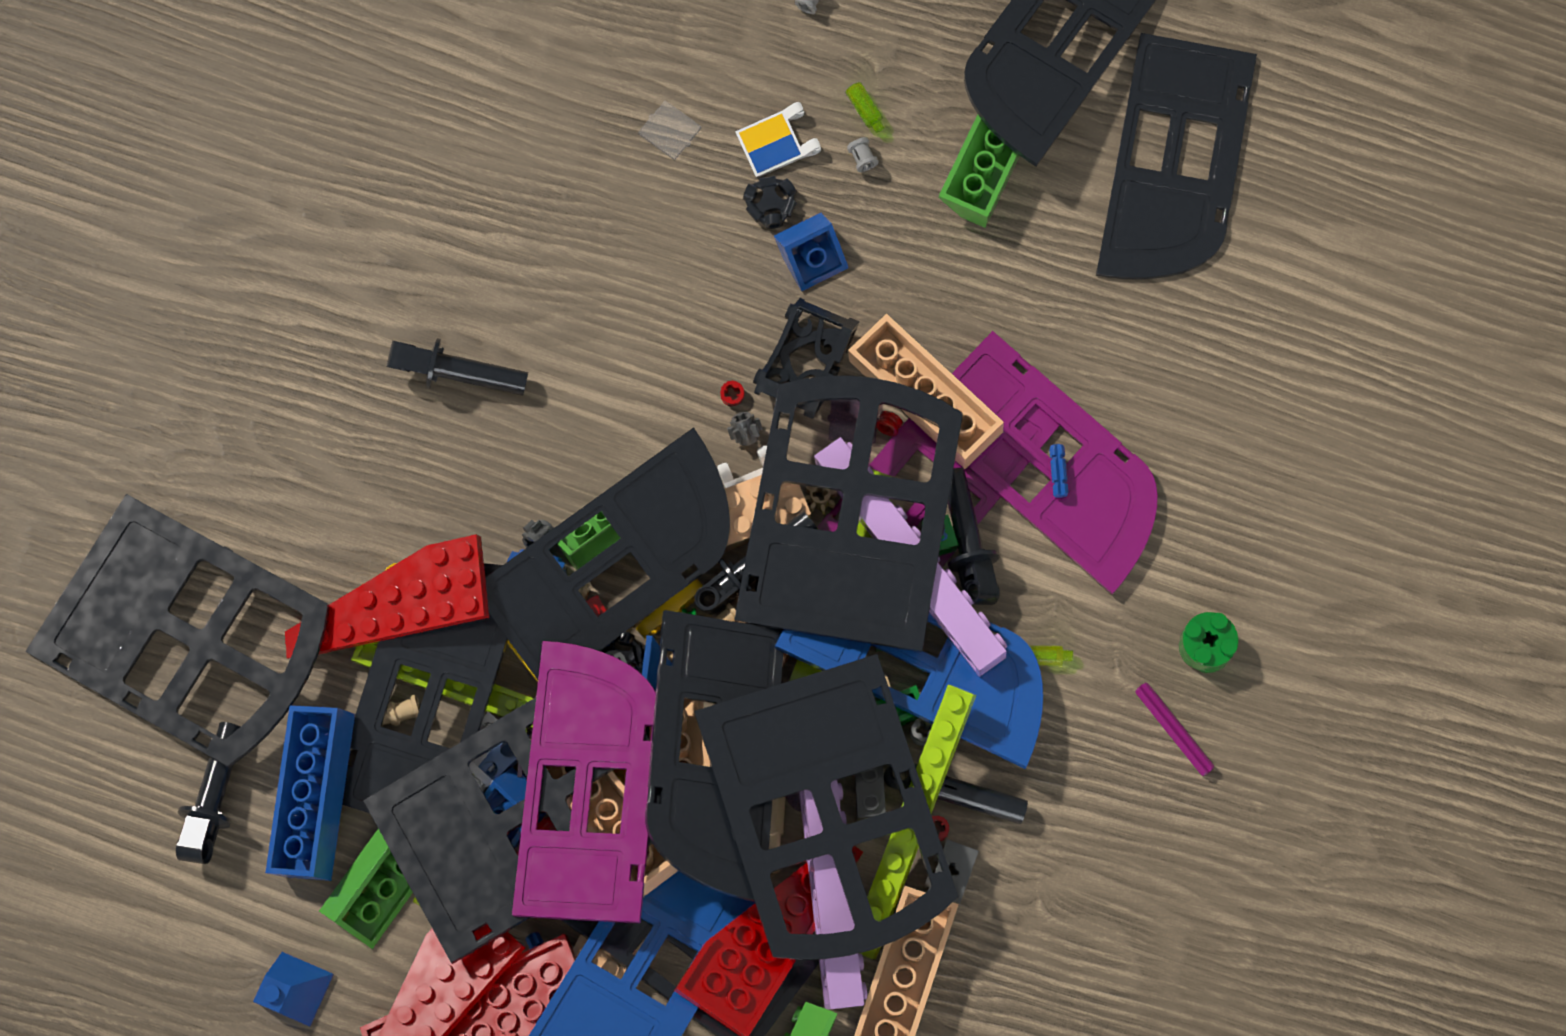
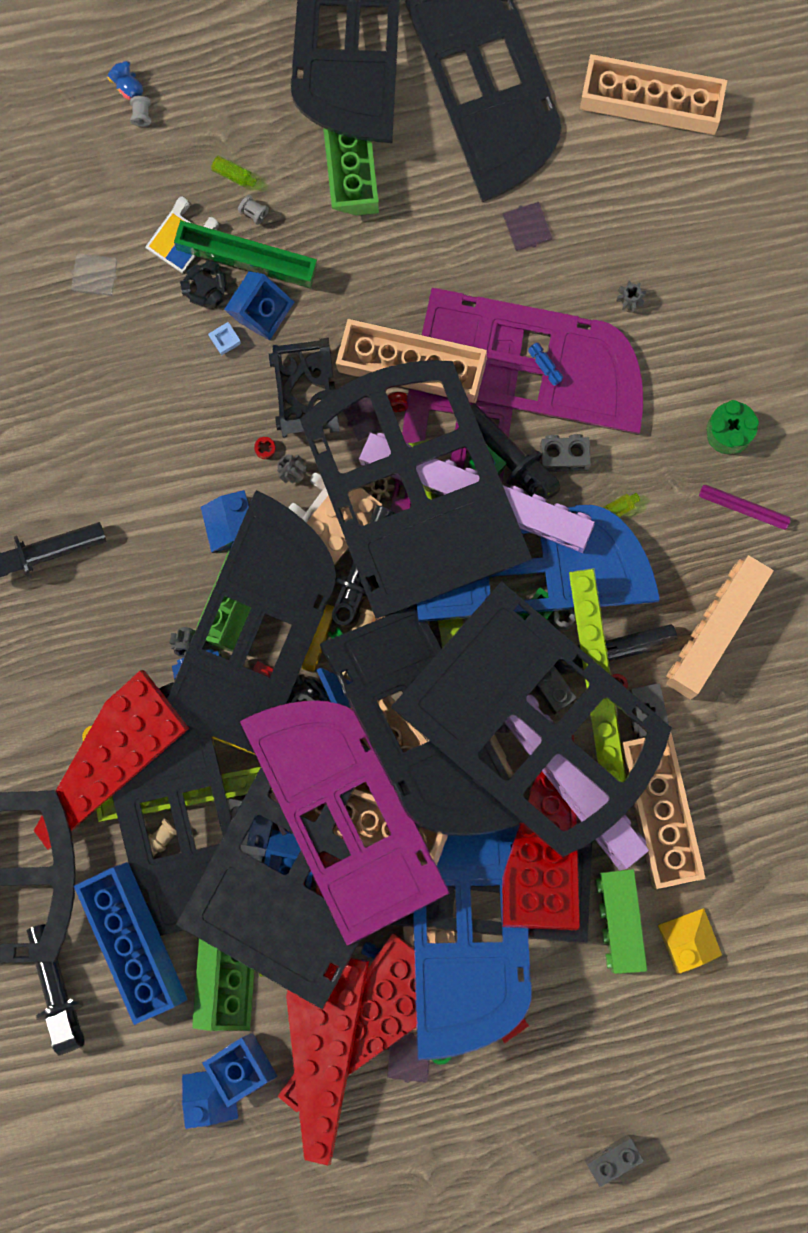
camera: 30 degrees left, 5 degrees up
(339, 978) = (239, 1069): none -> blue slope
(648, 437) = (223, 519): none -> blue slope
(757, 264) = (224, 338): none -> light blue plate
(827, 194) = (245, 254): none -> green brick
(1020, 577) = (566, 460): none -> dark grey brick
(1071, 831) = (719, 628): none -> light nougat brick
(1126, 325) = (527, 226): none -> clear purple piece
(1185, 460) = (634, 301): none -> dark grey gear
(1331, 265) = (653, 94): none -> light nougat brick

